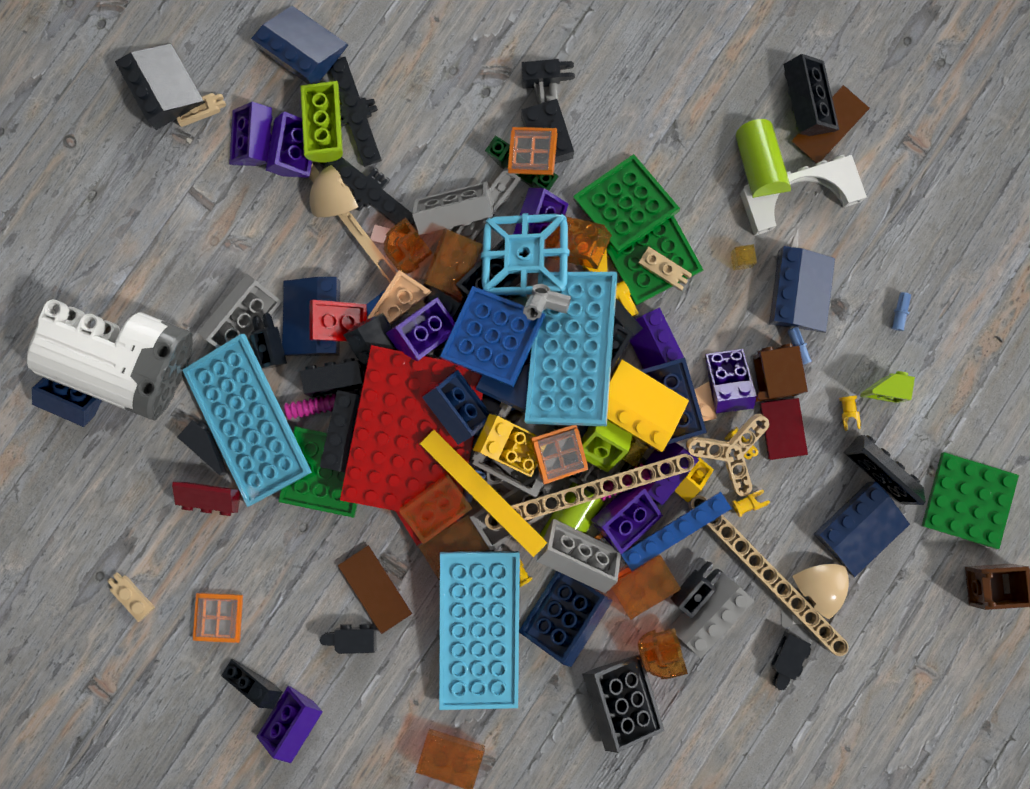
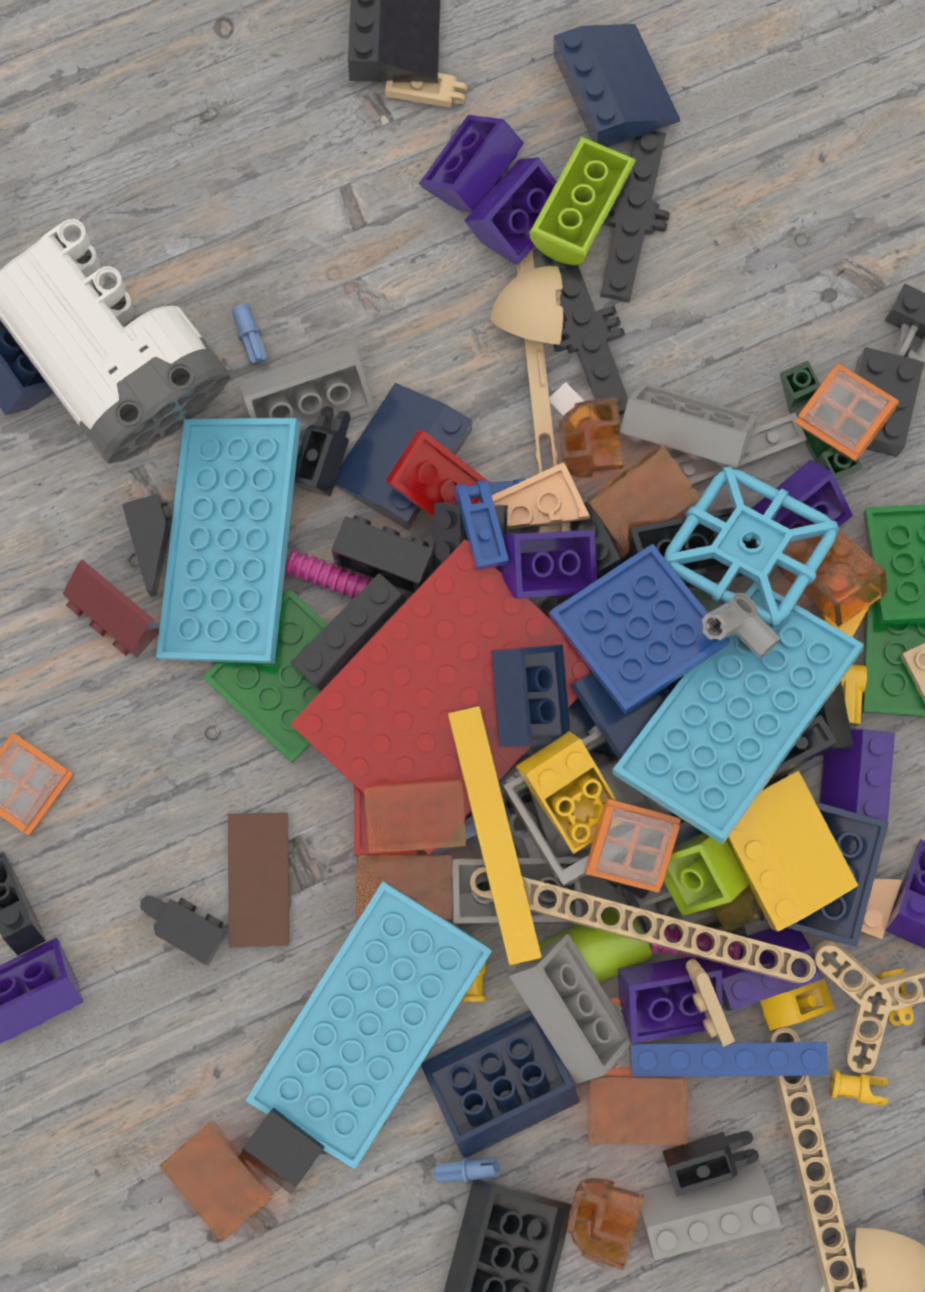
camera: 25 degrees right, 5 degrees down
(188, 302) = (249, 333): none -> medium blue axle
(375, 332) = (481, 525): none -> blue plate
(474, 722) = (282, 1150): none -> black slope
(576, 672) = (467, 1170): none -> medium blue axle
(647, 509) = (707, 1001): none -> tan hinge

